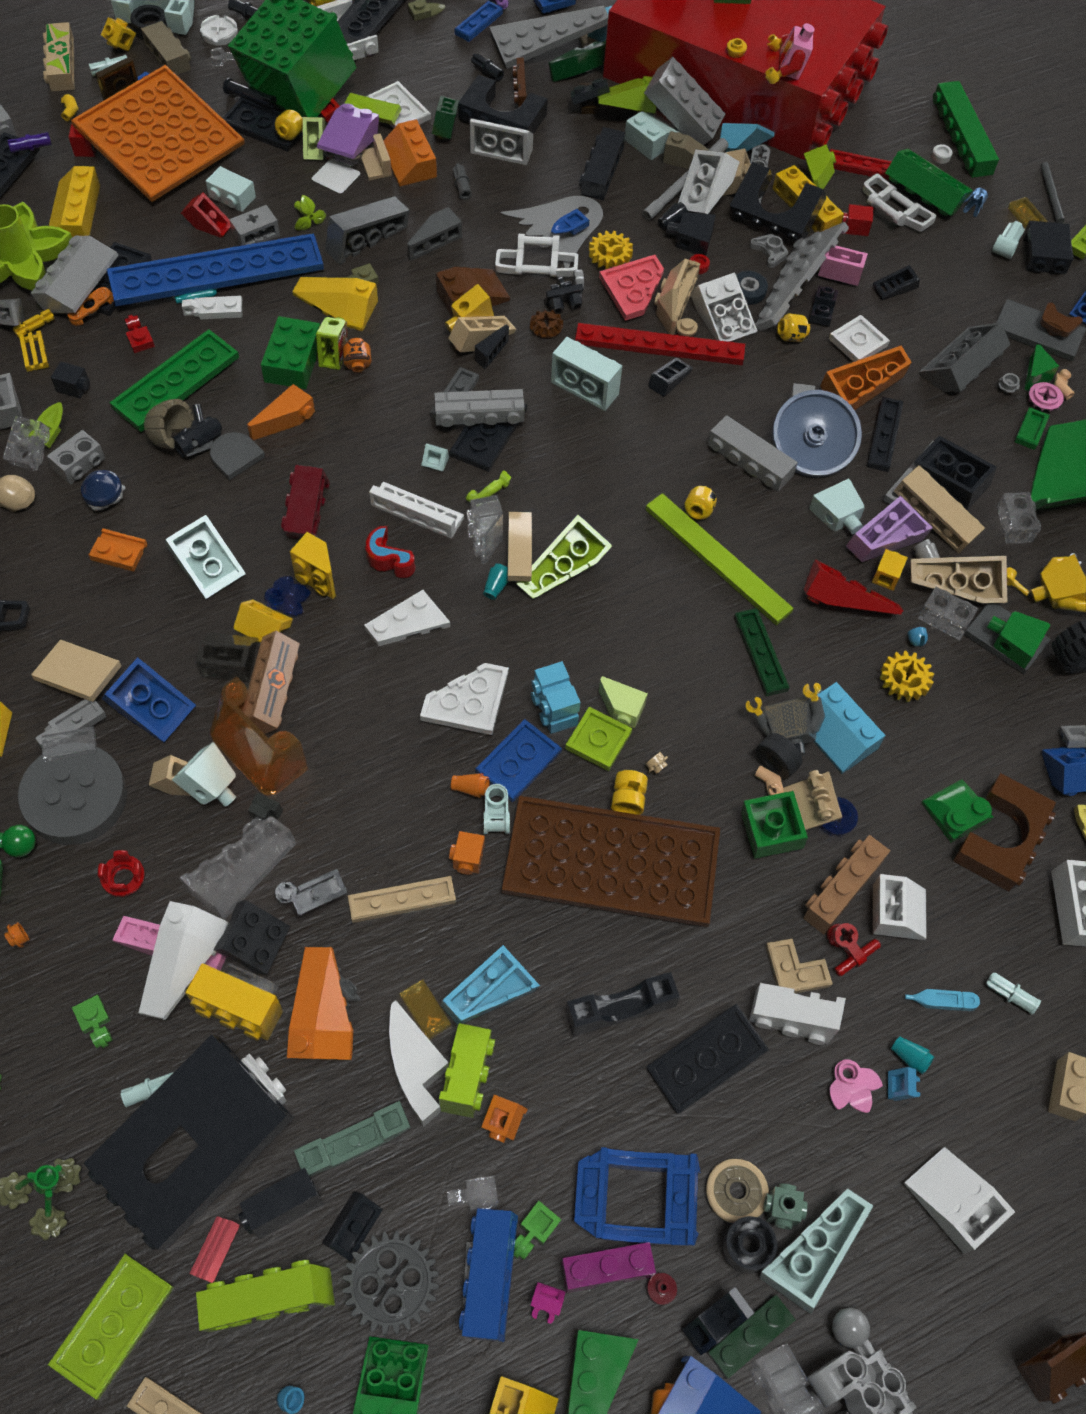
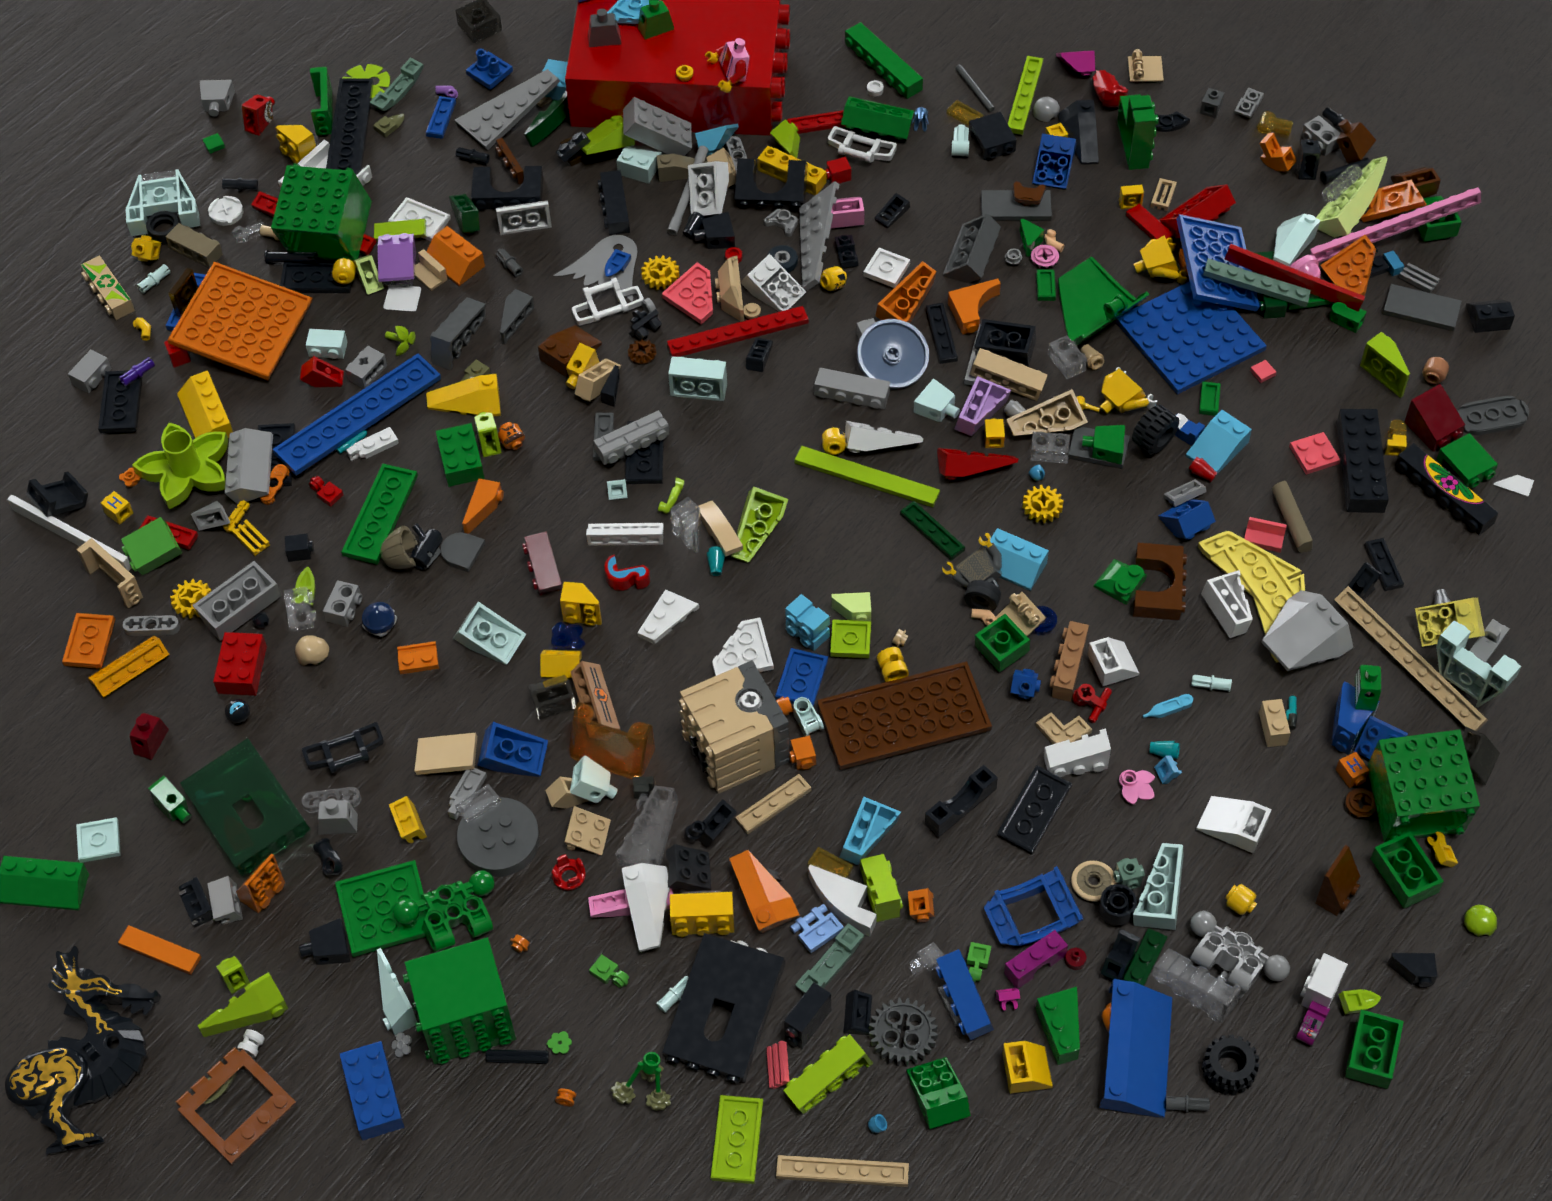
camera: 20 degrees left, 5 degrees down
(172, 833) = (587, 831): none -> tan hinge
(363, 1093) = (820, 932): none -> light blue plate
(394, 786) = (734, 726): none -> tan piece
(737, 514) = (865, 438): none -> white wedge
(777, 888) = (1019, 686): none -> blue brick
(918, 1317) = (1241, 899): none -> yellow head
(933, 410) = (967, 302): none -> orange arch
(1050, 532) = (1094, 358): none -> tan cone

